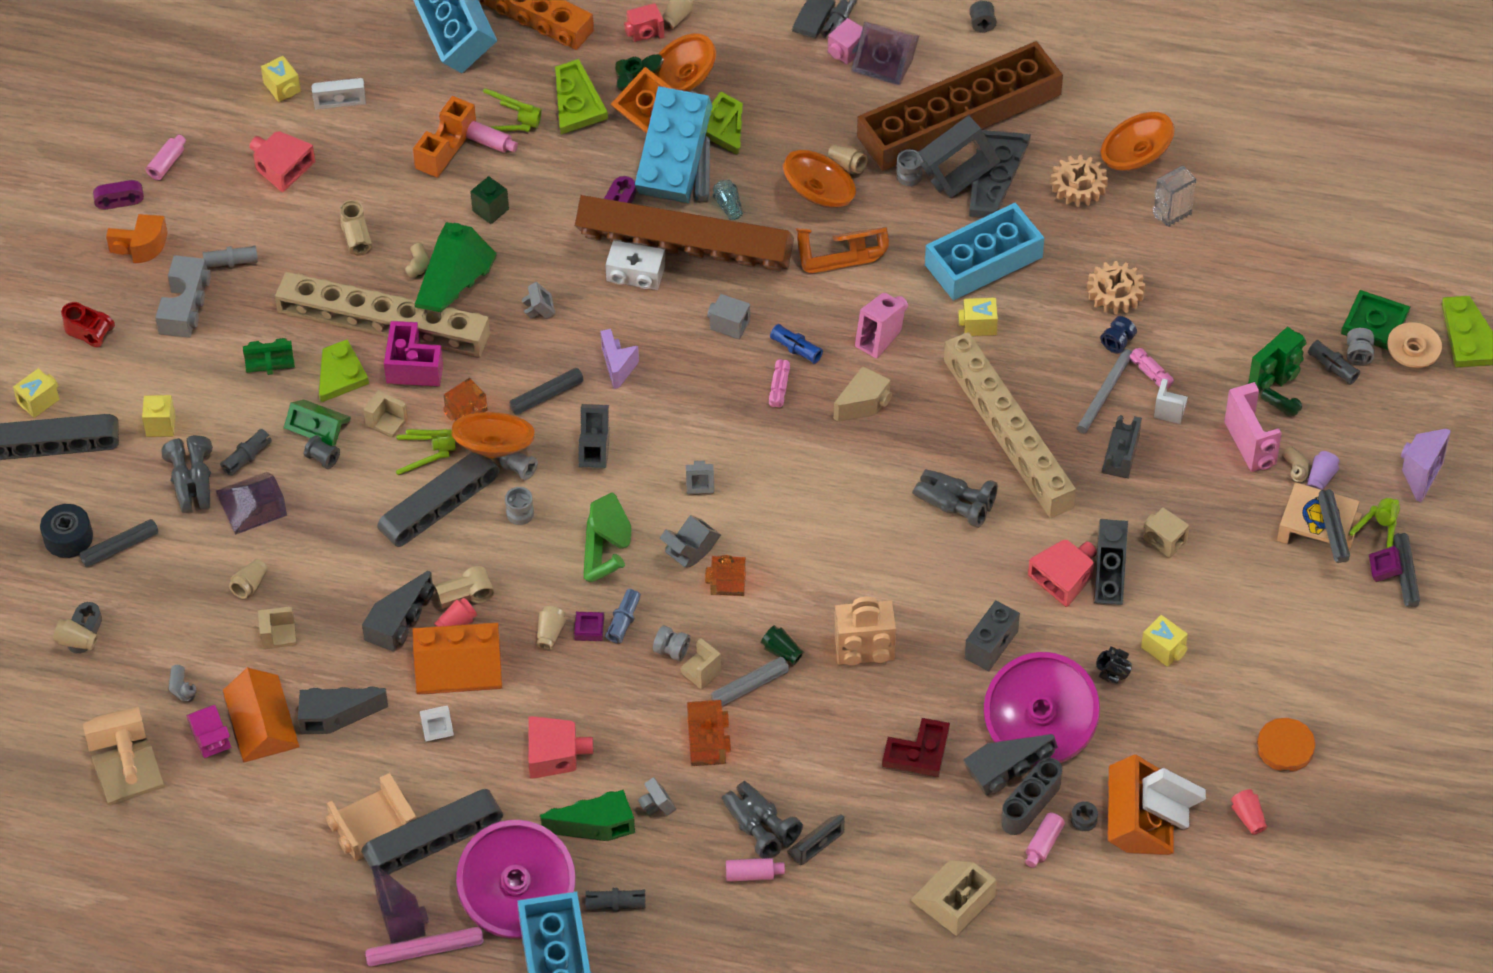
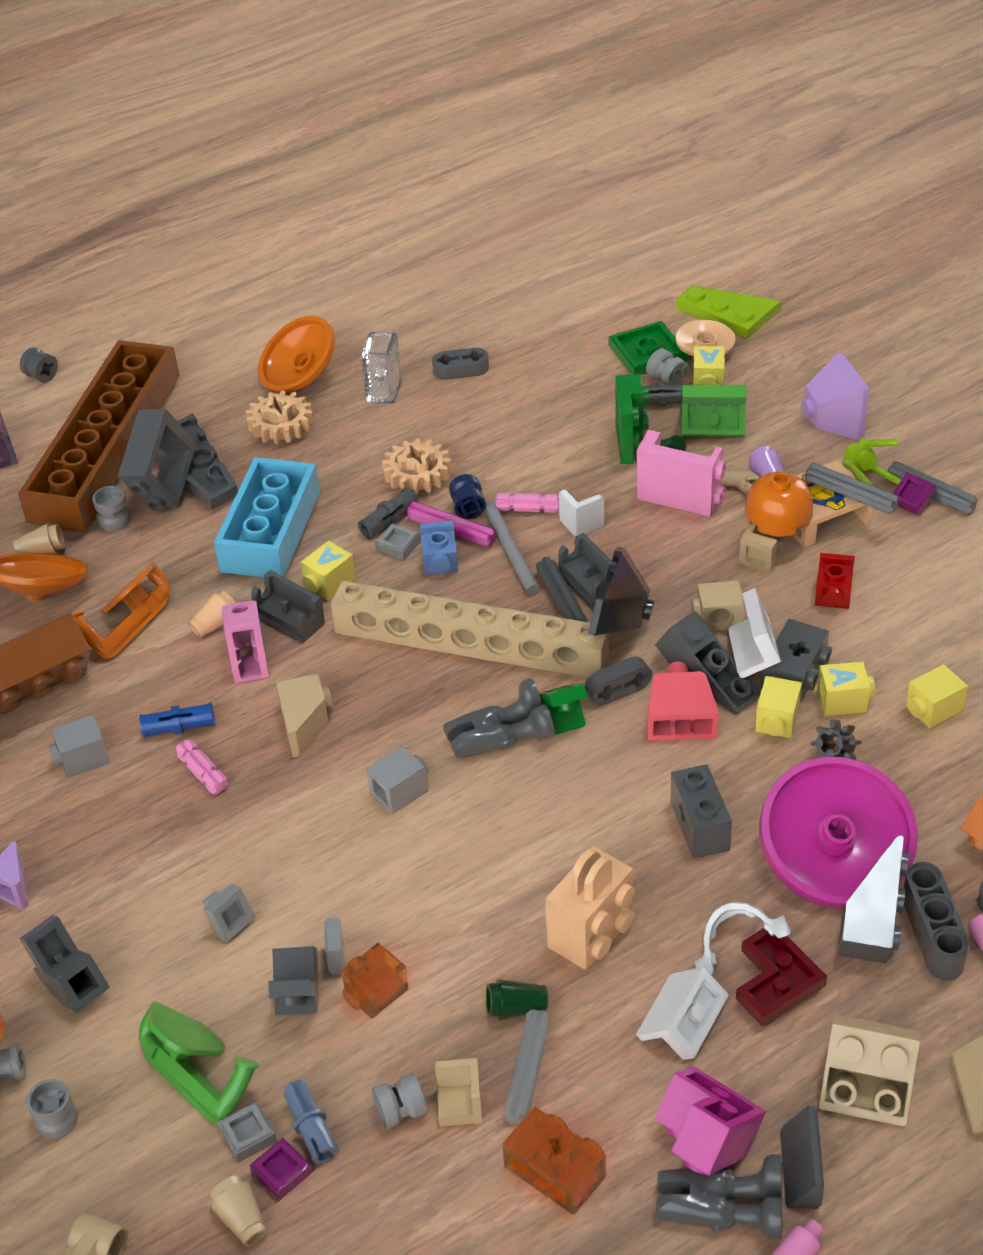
camera: 45 degrees left, 10 degrees down
(593, 595) = (247, 1131): none -> light grey tile
(730, 540) = (334, 946): none -> light grey tile
(788, 779) = (708, 1120): none -> dark pink brick
(853, 726) = (684, 1011): none -> white panel
(865, 479) = (397, 779): none -> light grey brick
(891, 287) = (210, 615): none -> light nougat cone
(900, 828) = (870, 1070): none -> tan slope
(920, 699) = (775, 927): none -> white helmet
(930, 323) = (289, 607): none -> dark grey hinge
(1001, 514) = (565, 706): none -> green slope
(1046, 331) = (397, 542): none -> light grey tile
(1050, 526) = (618, 680): none -> dark grey beam
(1059, 356) = (439, 547): none -> medium blue brick
(1062, 306) = (386, 513): none -> dark grey pin
(1089, 345) = (463, 528): none -> dark pink axle
(1092, 446) = (559, 590): none -> dark grey axle
(1097, 478) = (622, 598): none -> black wedge
(1113, 618) = (778, 707): none -> light yellow brick
(1151, 565) = (753, 638): none -> white panel
(1164, 597) = (801, 653): none -> dark grey brick
(1207, 690) = (936, 696): none -> light yellow brick
(1243, 229) = (460, 363): none -> dark grey beam
(1244, 516) = (758, 550): none -> tan panel
(1253, 576) = (834, 580): none -> red brick
(1272, 499) = (779, 504): none -> orange cylinder
(1340, 403) = (713, 411): none -> bright green bracket
(1384, 369) = (708, 365): none -> light yellow brick

